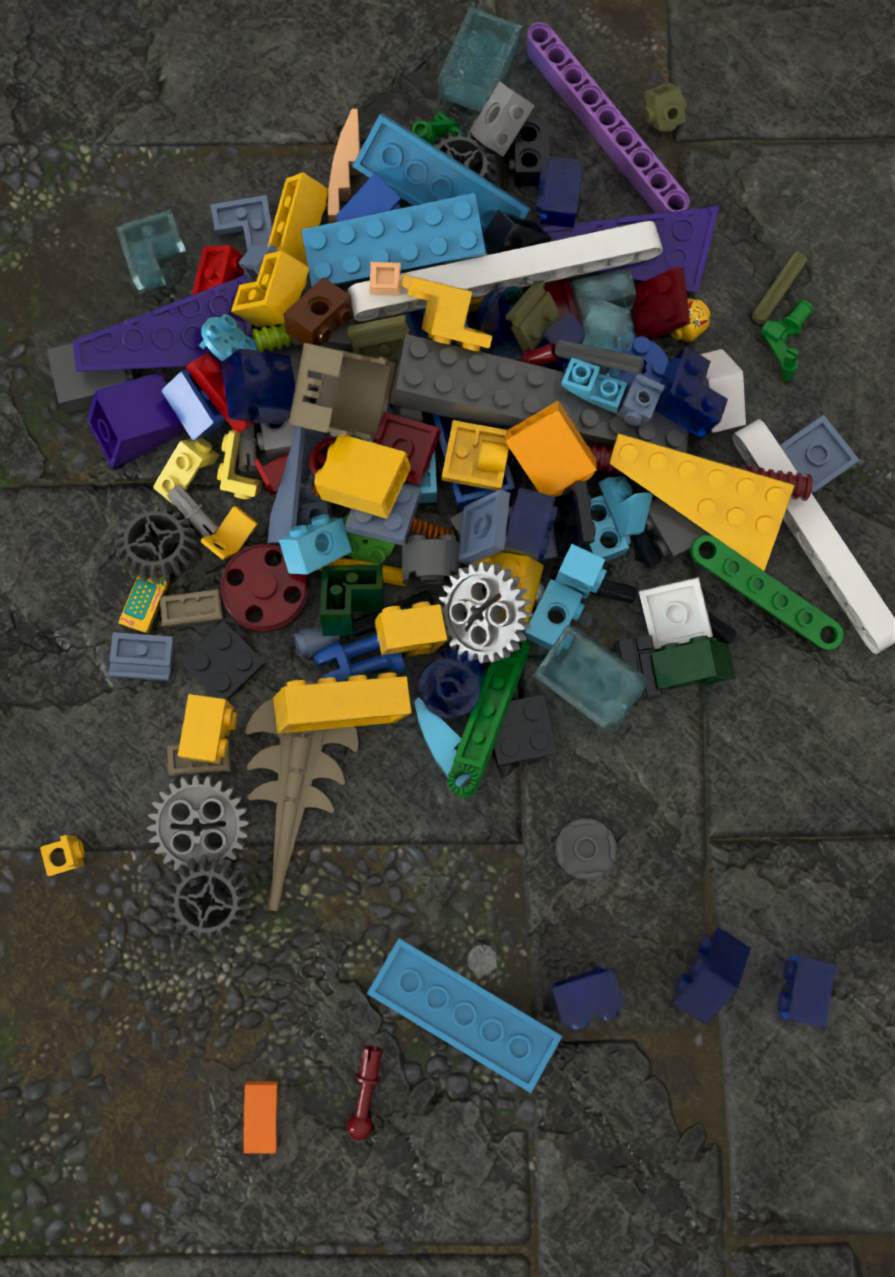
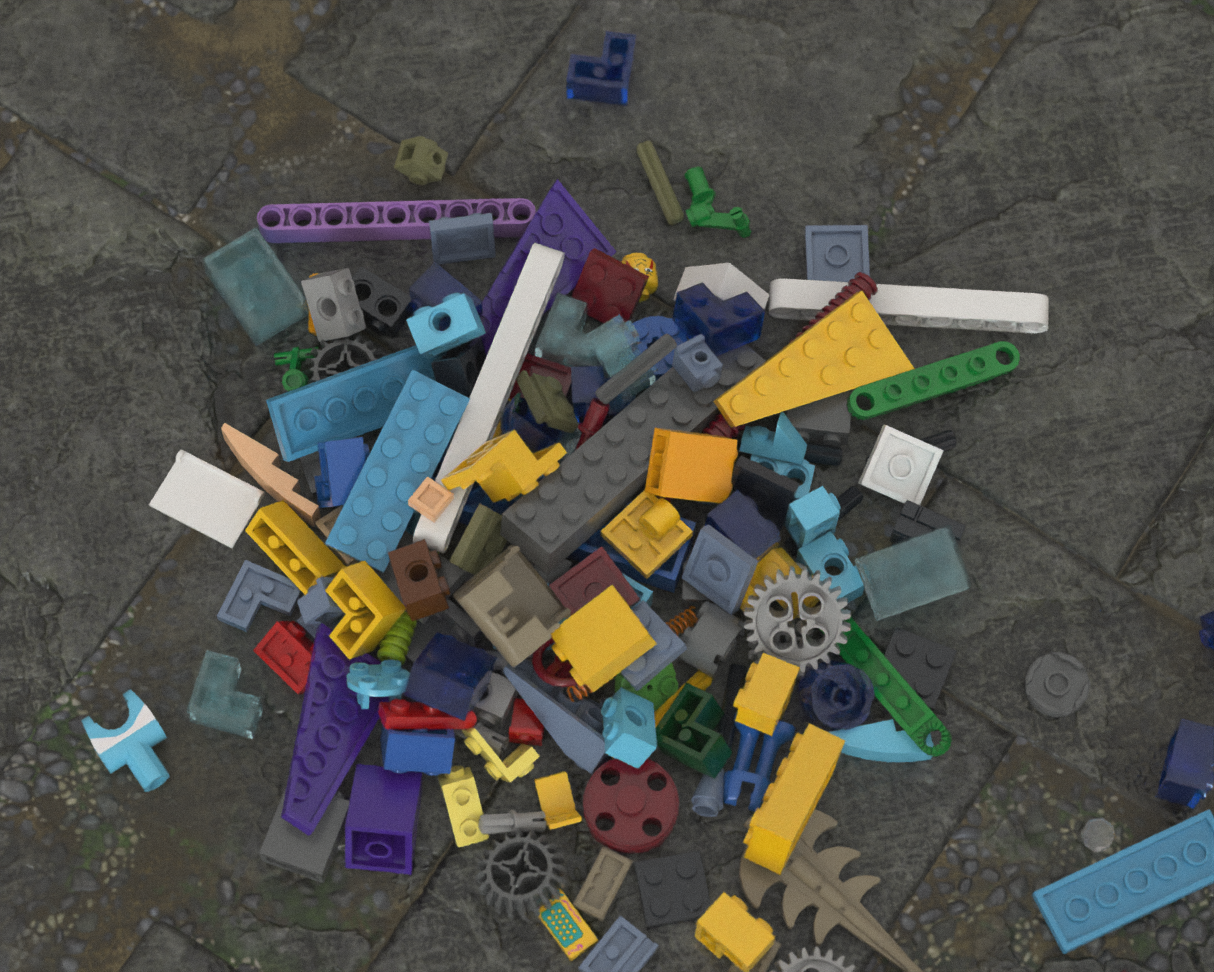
camera: 55 degrees left, 10 degrees down
(77, 211) = (131, 744): none -> medium azure connector
(299, 141) = (207, 499): none -> white piece
(541, 211) = (464, 325): none -> medium azure brick
(587, 383) = (658, 392): medium azure slope -> none
(622, 173) = (462, 238): none -> sand blue plate
(700, 662) = (958, 481): dark green brick -> none
(834, 191) = (606, 77): none -> clear blue brick

